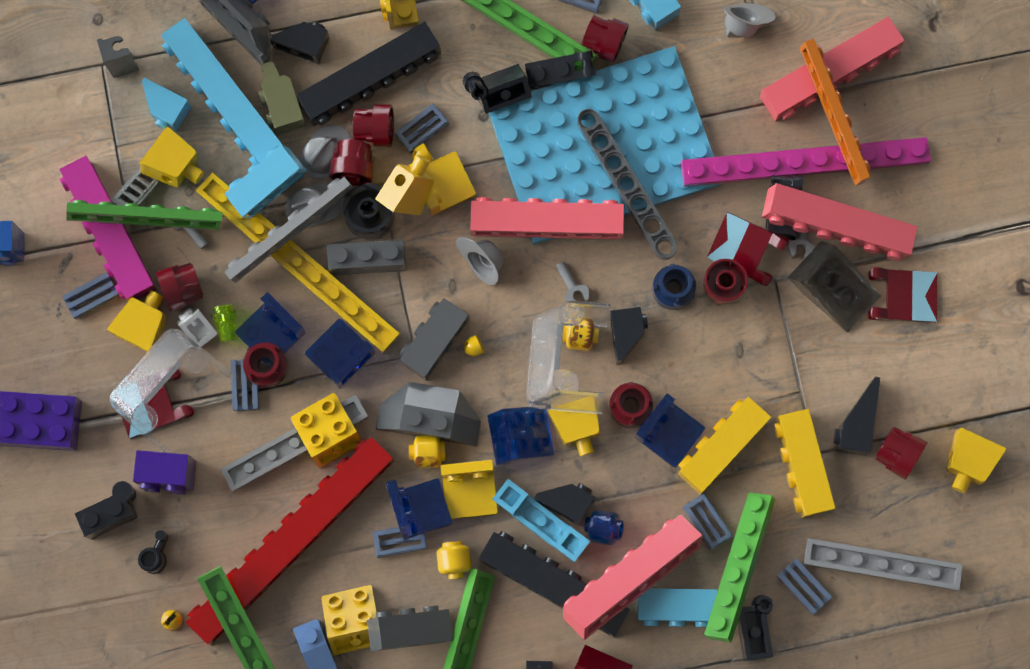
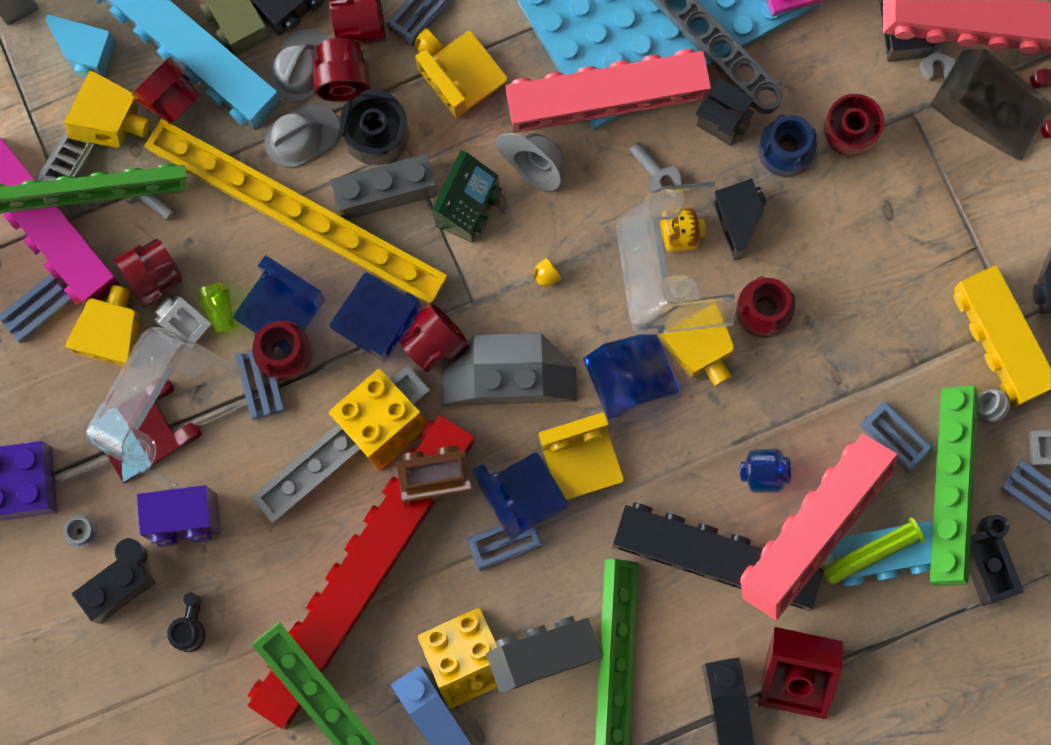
camera: 10 degrees left, 0 degrees up
(85, 463) = (72, 525): none -> light grey plate
(175, 624) = (233, 711): yellow hinge -> none
(220, 154) = (167, 91): none -> dark red piece
(265, 181) = (232, 114): medium azure brick -> none
(281, 235) = (268, 179): light grey plate -> none
(356, 481) = (433, 475): none -> reddish brown window
(378, 378) = (433, 338): none -> dark red piece
(407, 188) = (420, 83): yellow torso -> none
(425, 278) = (466, 198): none -> dark green slope
(427, 451) = (516, 420): yellow head -> none
(433, 338) = (493, 273): dark grey brick -> none
(454, 559) = (581, 552): yellow head -> none
(540, 520) = (682, 479): medium azure slope -> none
(567, 501) = (711, 447): black slope -> none
(631, 253) = (725, 112): none -> black hinge
(667, 604) = (873, 552): none -> lime axle
(669, 431) = (823, 331): clear blue bracket -> none
(723, 445) = (896, 334): yellow brick -> none
(746, 244) = (868, 71): dark red flag -> none
(783, 513) = (993, 405): none -> light grey plate

